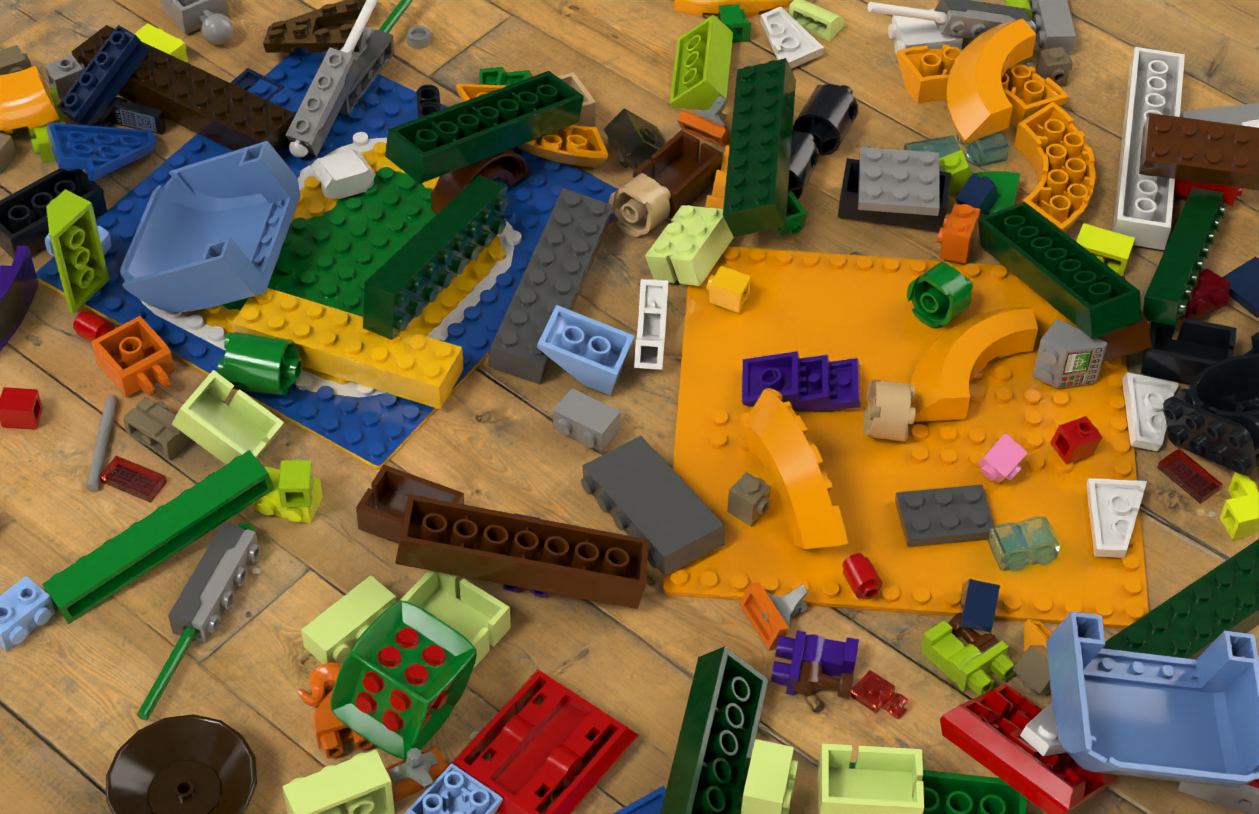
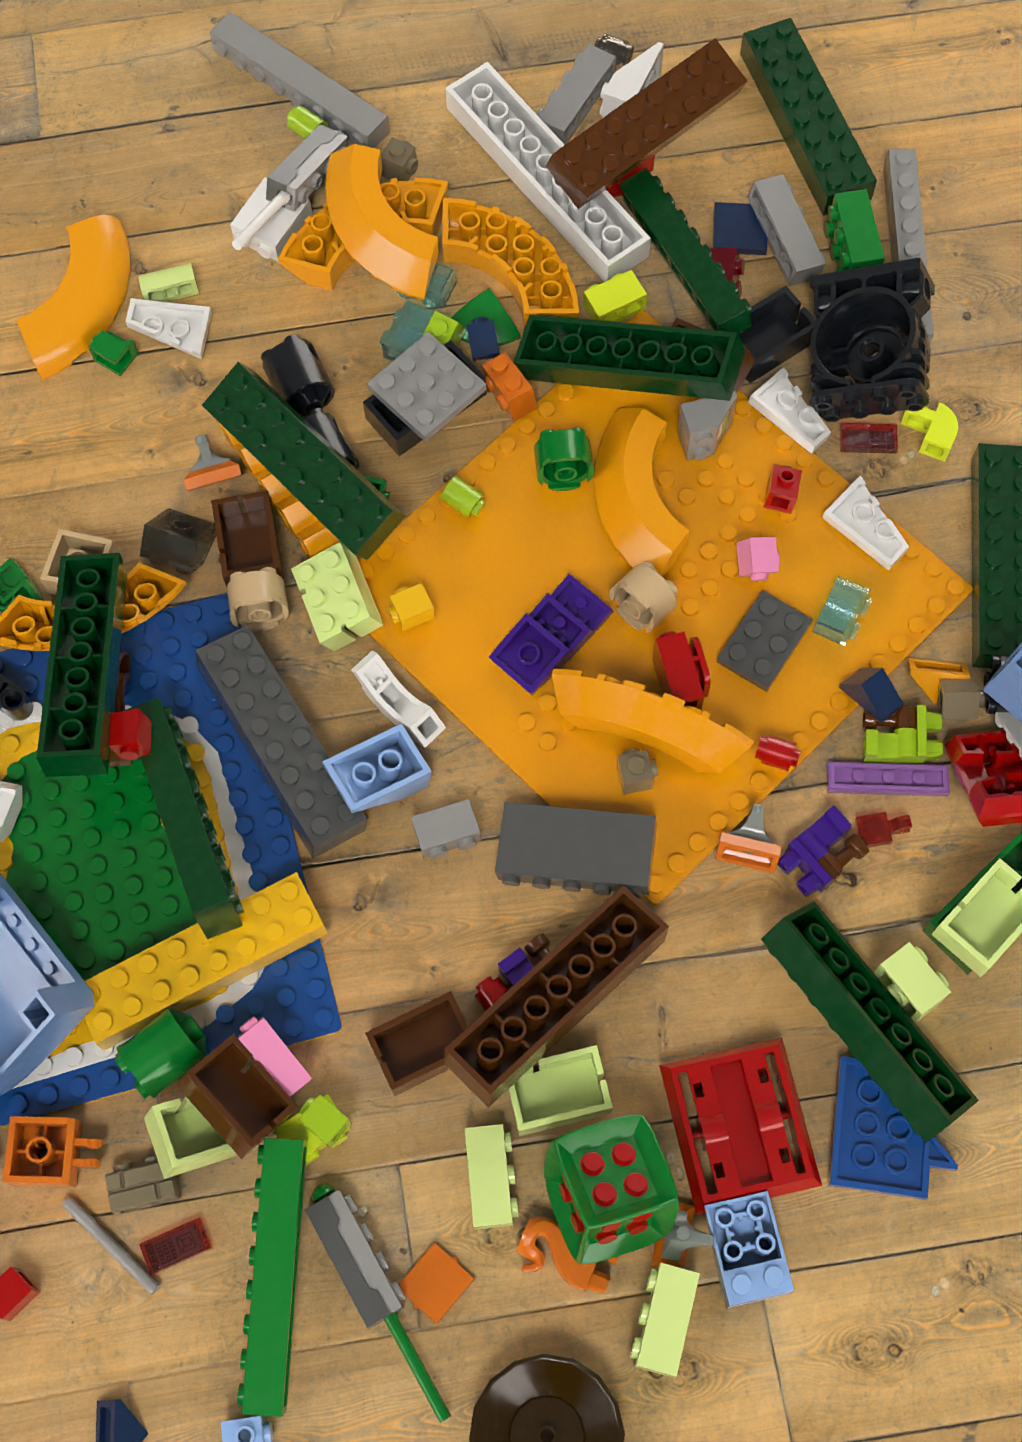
camera: 45 degrees left, 20 degrees up
(241, 648) = (435, 1283): none -> orange piece
(265, 413) = (236, 1104): none -> reddish brown piece
(317, 425) = (273, 1055): none -> bright pink brick
(461, 179) = (130, 734): none -> red brick
(701, 65) = (138, 417): lime slope -> none
(844, 262) = (463, 497): none -> lime brick
(856, 468) = (682, 668): none -> red brick
(920, 668) = (887, 778): none -> medium lavender tile

